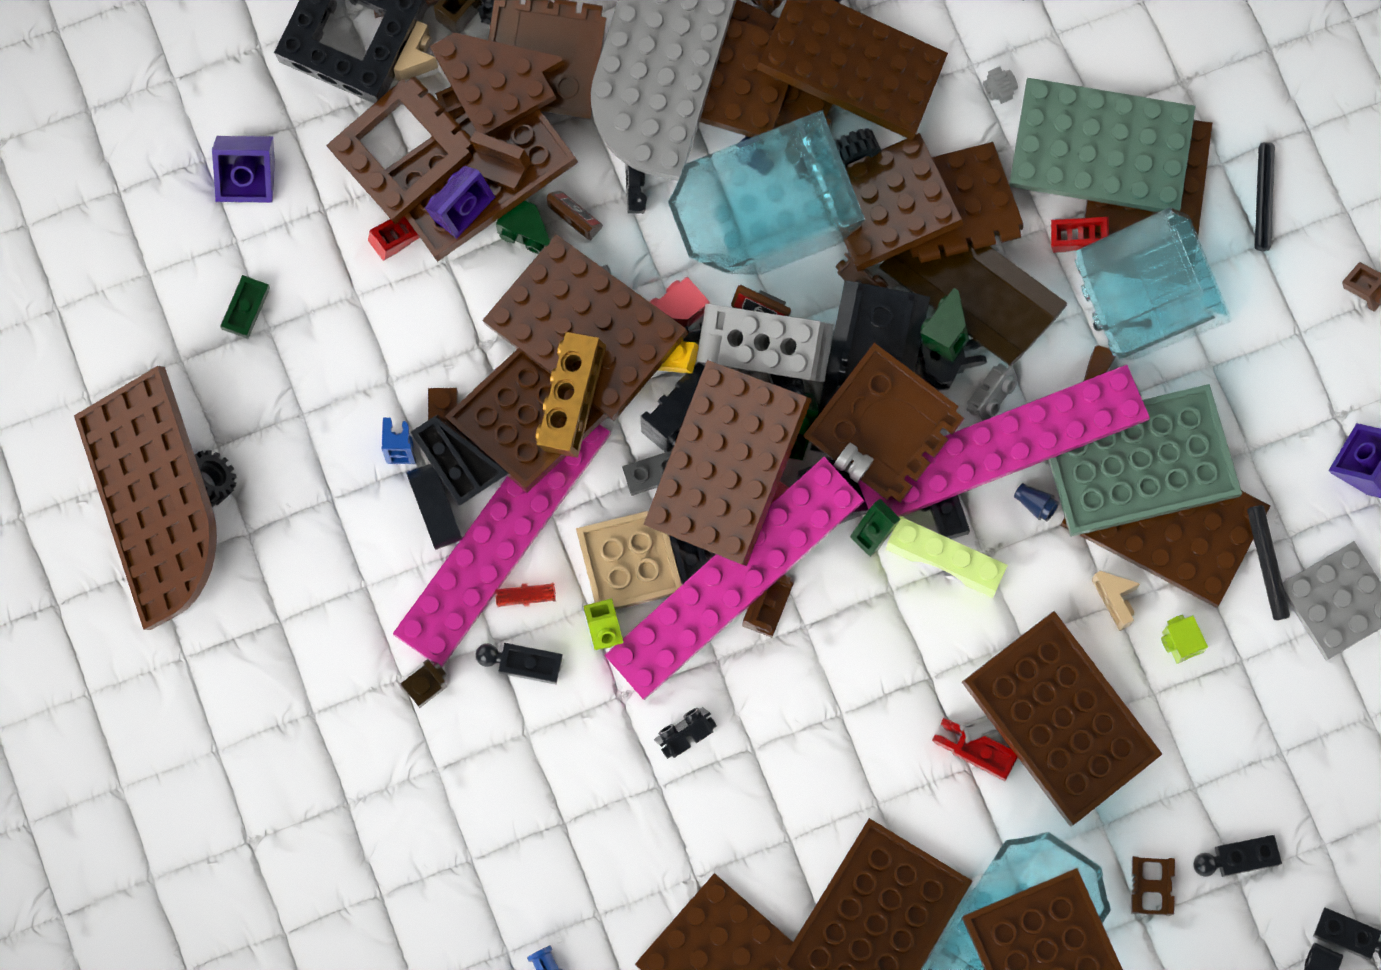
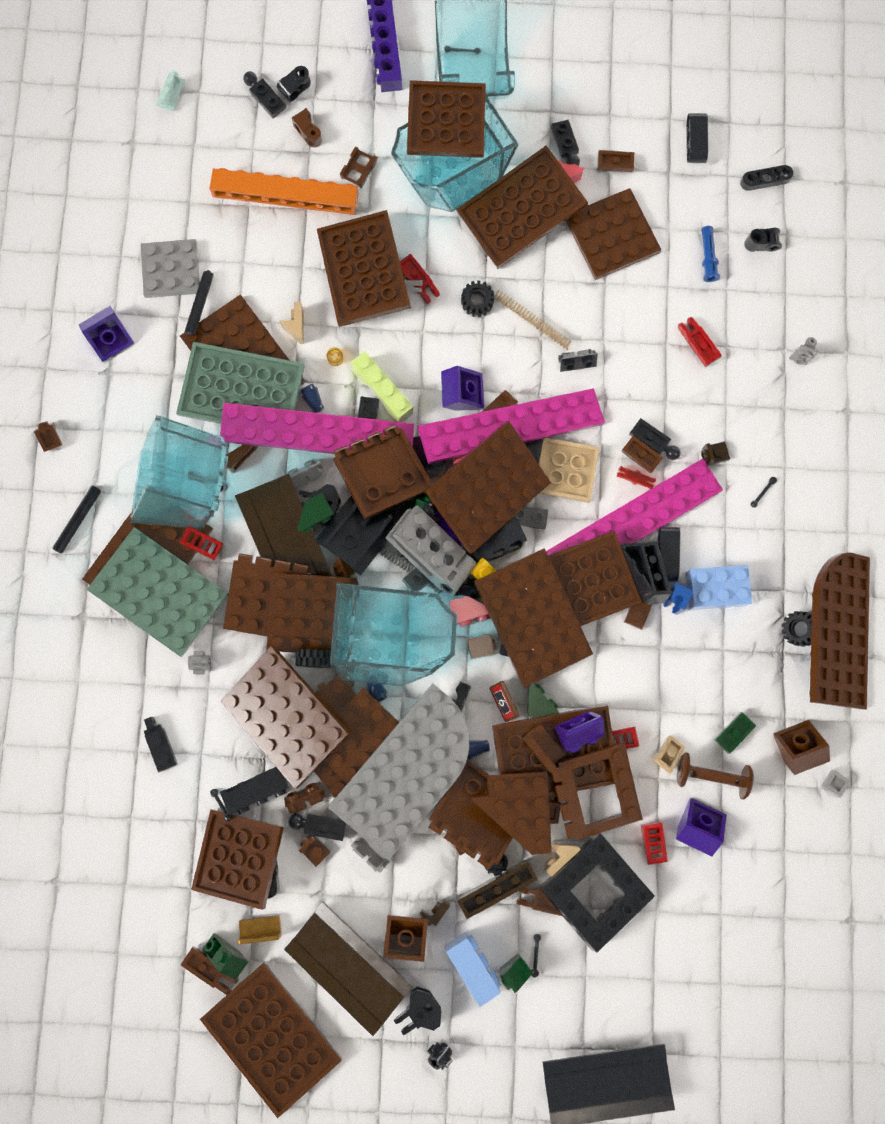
camera: 160 degrees left, 5 degrees up
(82, 301) = (836, 783): none -> light grey plate
(147, 326) = (802, 747): none -> reddish brown slope
(252, 234) = (743, 781): none -> reddish brown hose
(307, 143) = (660, 834): none -> red slope
(325, 236) = (669, 754): none -> tan slope
(325, 683) = (772, 480): none -> black hinge
(345, 487) = (719, 587): none -> light blue brick
(353, 888) = (805, 352): none -> light grey hinge
(514, 841) = (699, 342): none -> red hinge
(531, 632) = (642, 454): none -> reddish brown plate
(569, 438) = (542, 590): pearl gold brick -> none
(585, 138) = (477, 747): none -> dark blue cone
(603, 624) = (599, 436): lime brick -> none
(637, 266) = (481, 647): none -> brick
(751, 300) = (419, 578): slope -> none
(778, 764) = (534, 325): none -> tan piece
(830, 609) = (462, 389): none -> dark purple slope
(858, 467) = (413, 453): light grey wheel -> none
(875, 527) = (413, 418): dark green plate -> none
(881, 740) = (474, 288): none -> black tyre
(1044, 582) = (338, 361): none -> clear yellow bush
(1183, 638) = (270, 283): lime brick -> none
(1239, 791) = (284, 191): none -> orange brick
(1239, 857) = (303, 160): black plate -> none
(1261, 907) = (303, 124): none -> reddish brown leg

